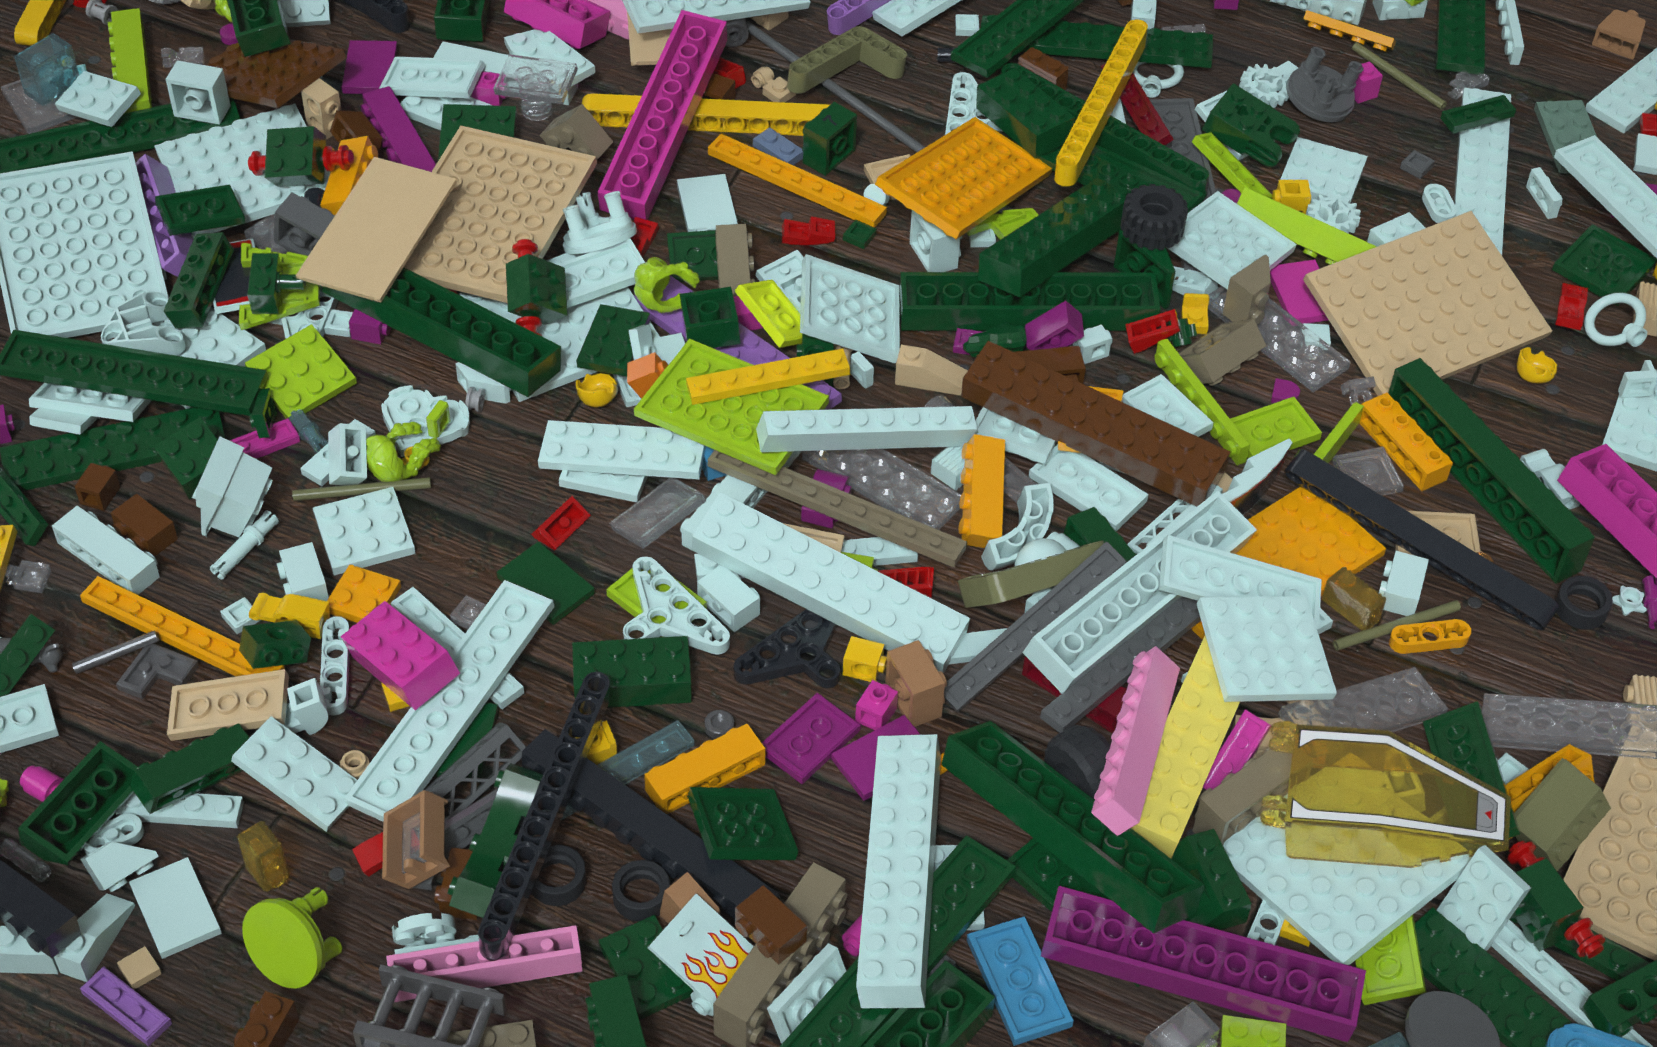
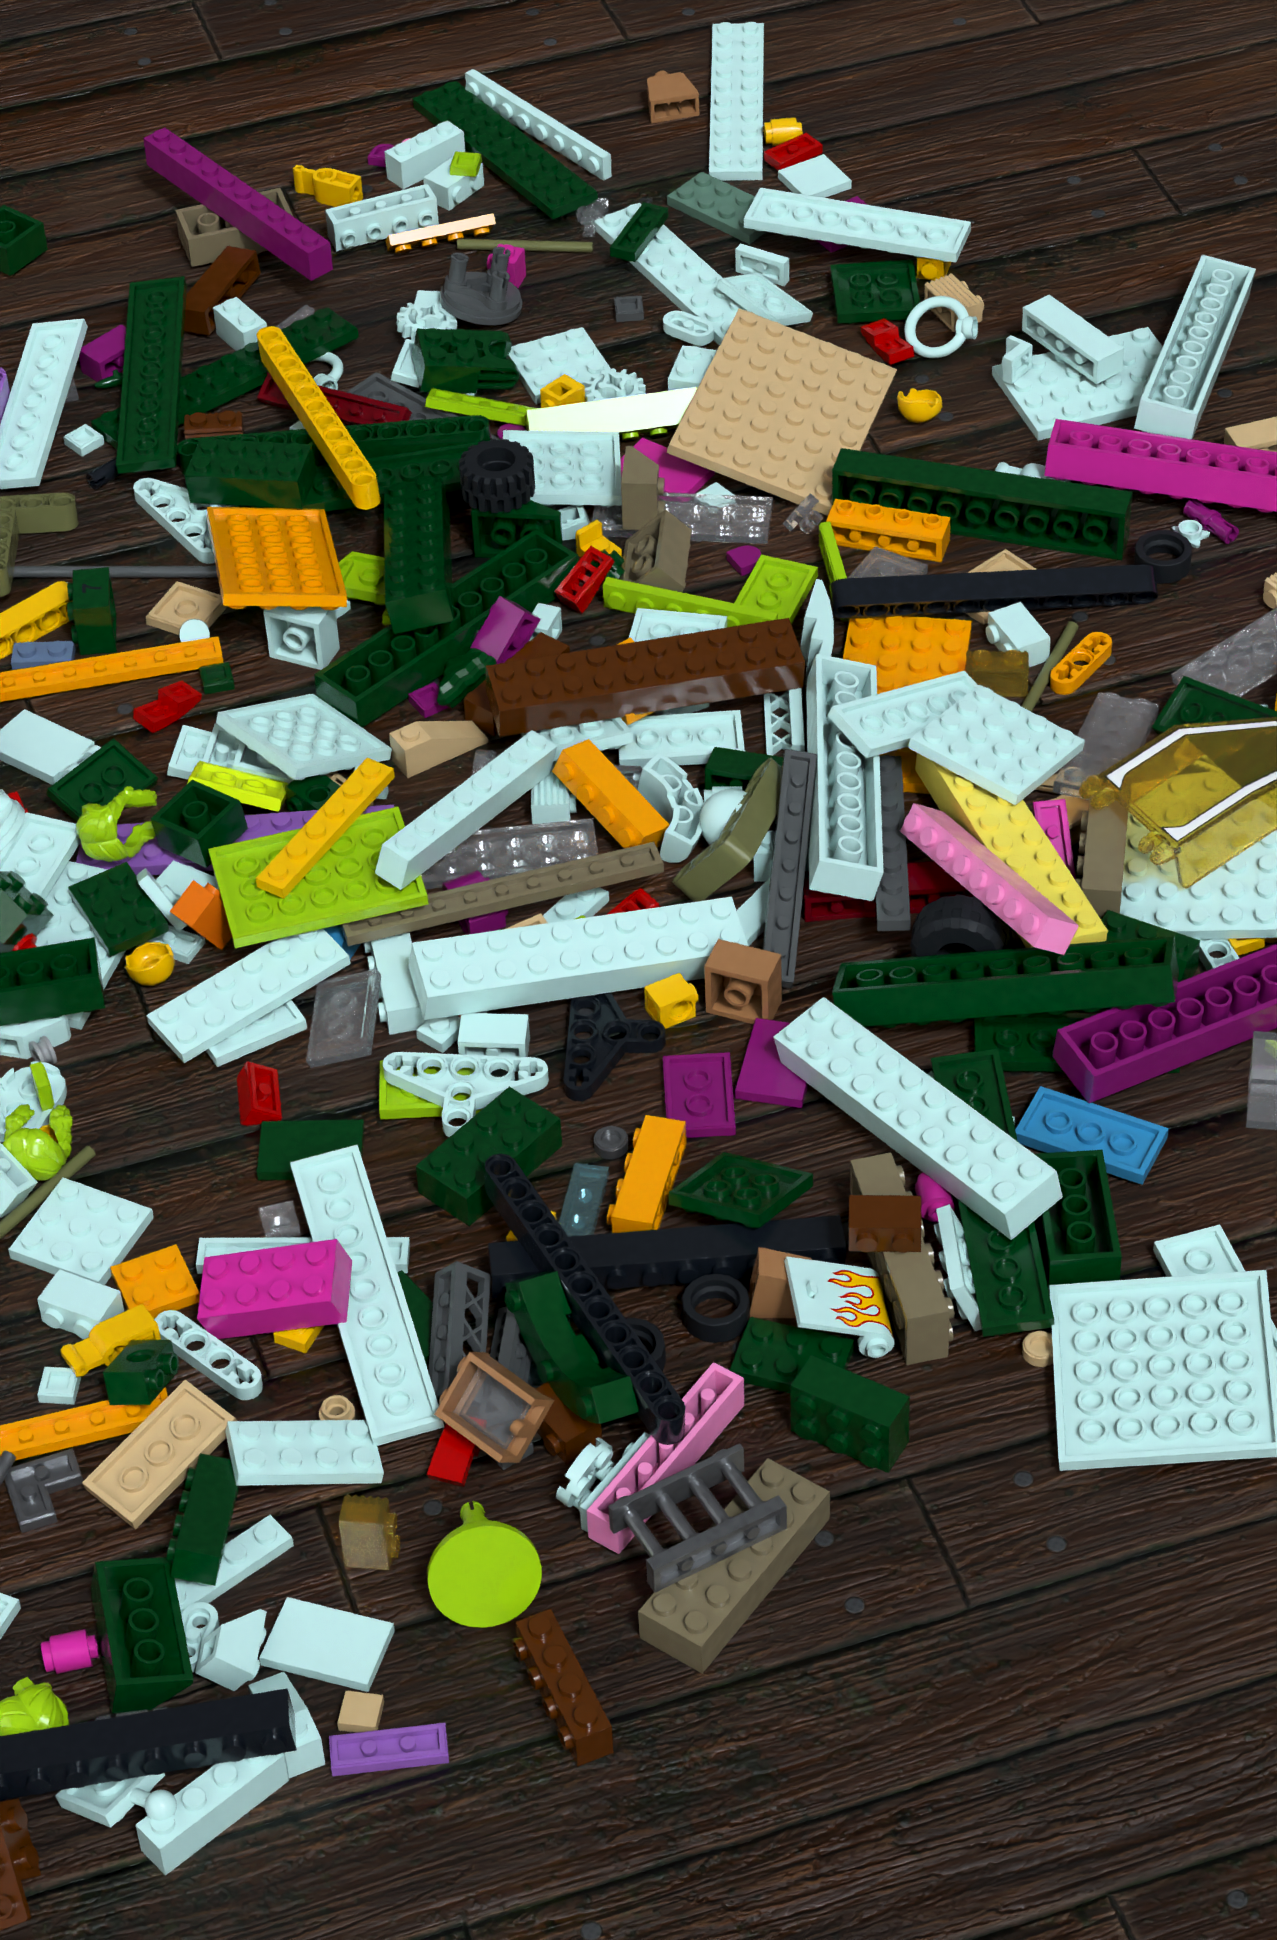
camera: 40 degrees left, 5 degrees down
(306, 708) = (242, 1392): light aqua brick -> none
(732, 255) = (138, 765): dark tan brick -> none
(876, 705) = (727, 1027): dark pink brick -> none
(1514, 219) = (764, 299): none -> light aqua tile

